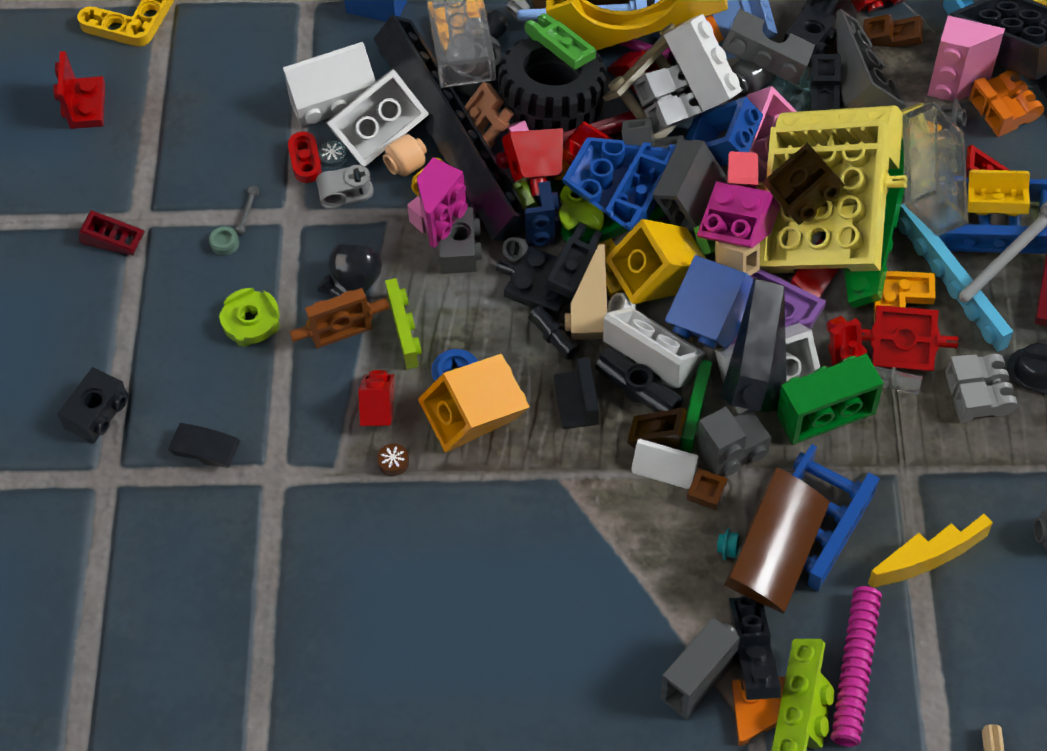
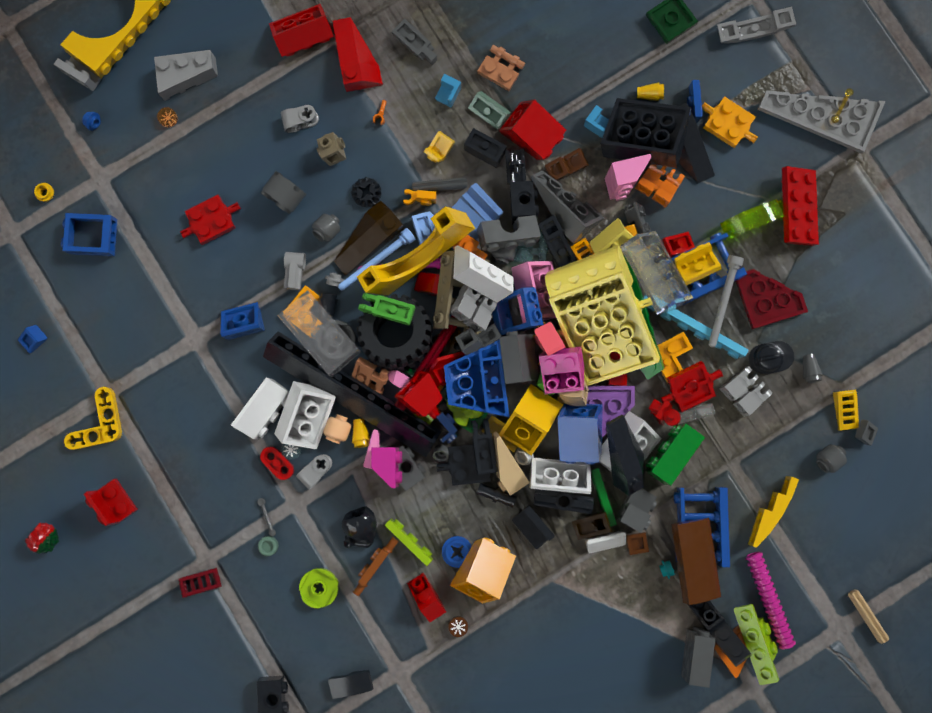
camera: 30 degrees left, 25 degrees up
(803, 184) = (592, 334): dark brown plate -> none

